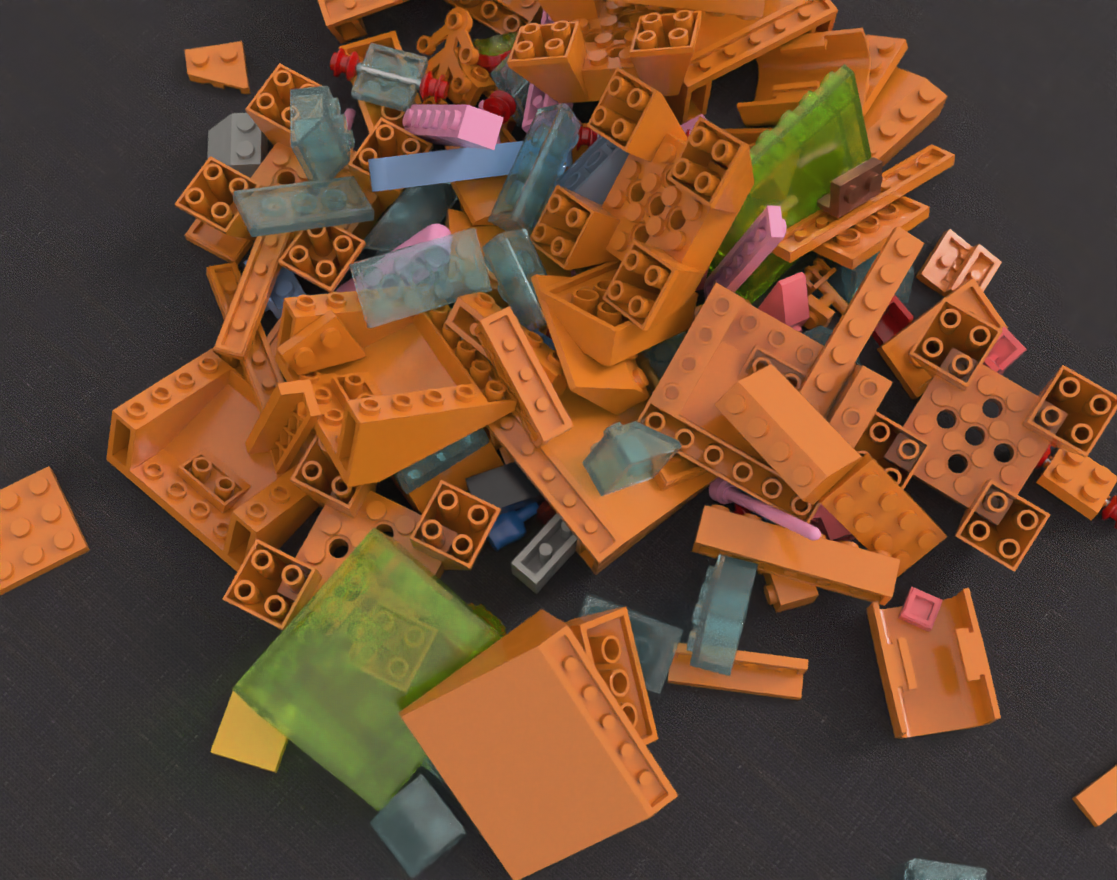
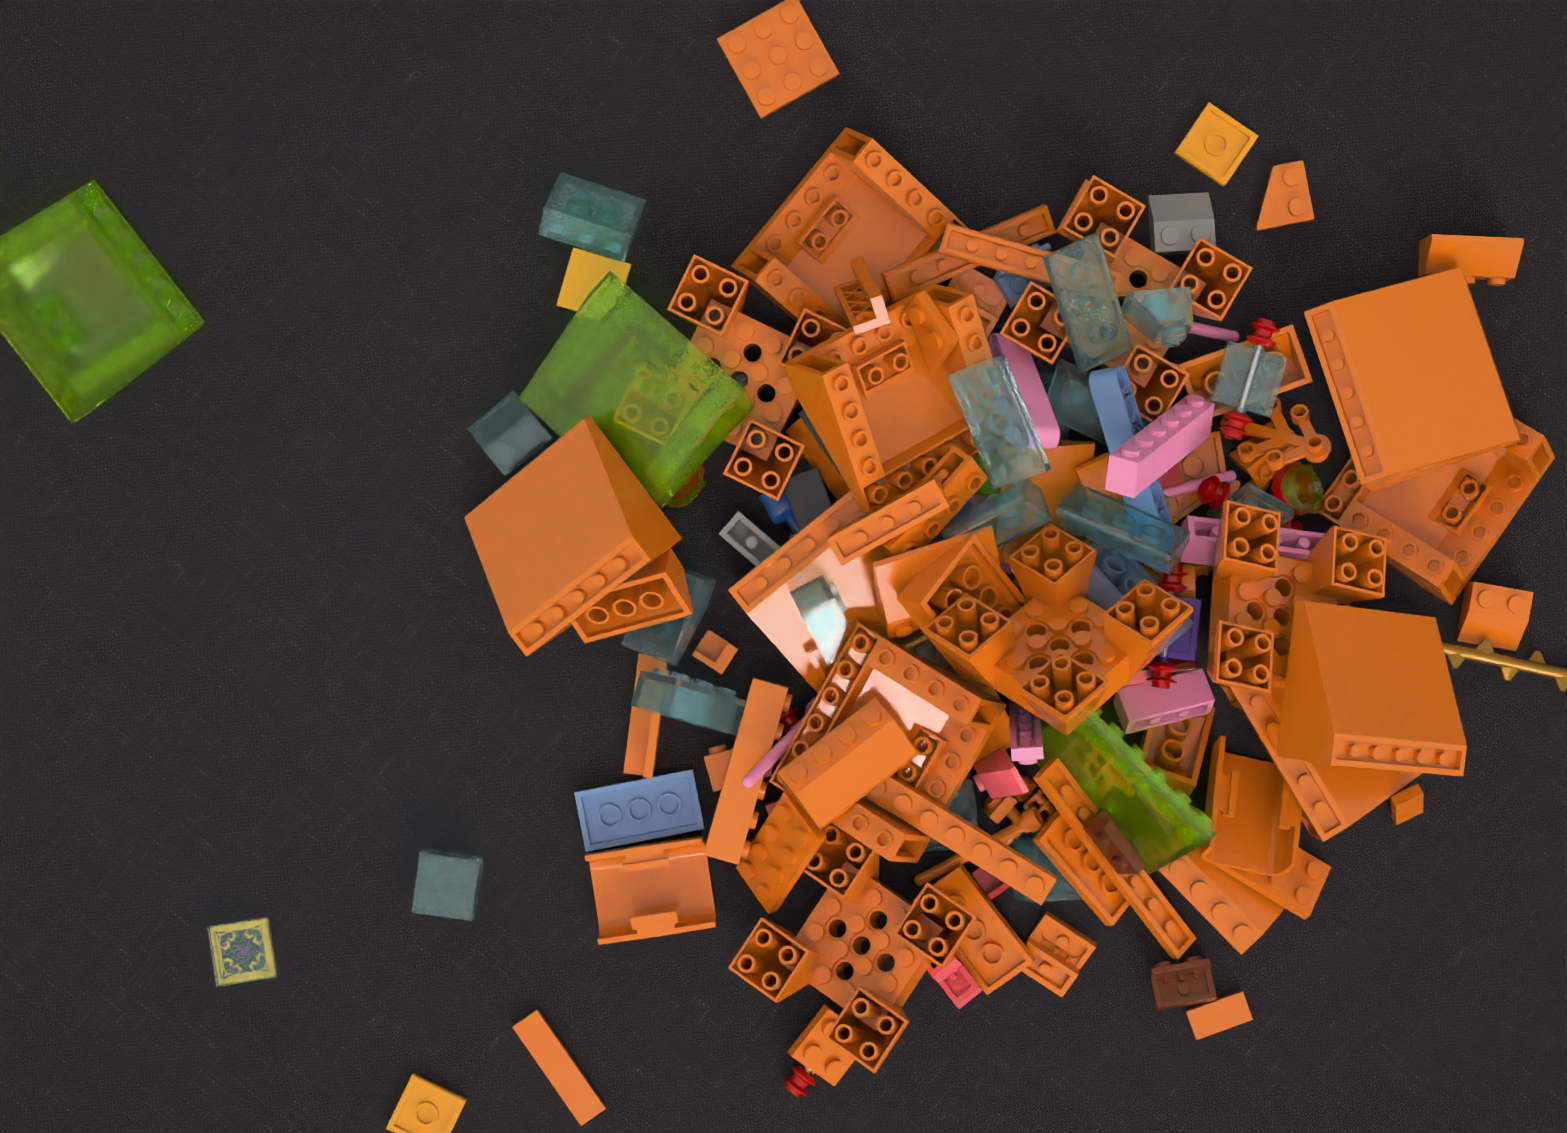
camera: 90 degrees right, 20 degrees up
(162, 124) = (1216, 144): none -> light orange tile
(178, 729) = (591, 216): none -> clear light blue slope
(665, 596) = (715, 651): none -> orange panel
(832, 280) = (1029, 822): none -> orange piece
(842, 681) = (639, 810): none -> medium blue plate
(920, 609) = (705, 886): coral tile -> none
(979, 155) = (1182, 983): none -> copper bracket
(1003, 127) = (1218, 1015): none -> orange tile

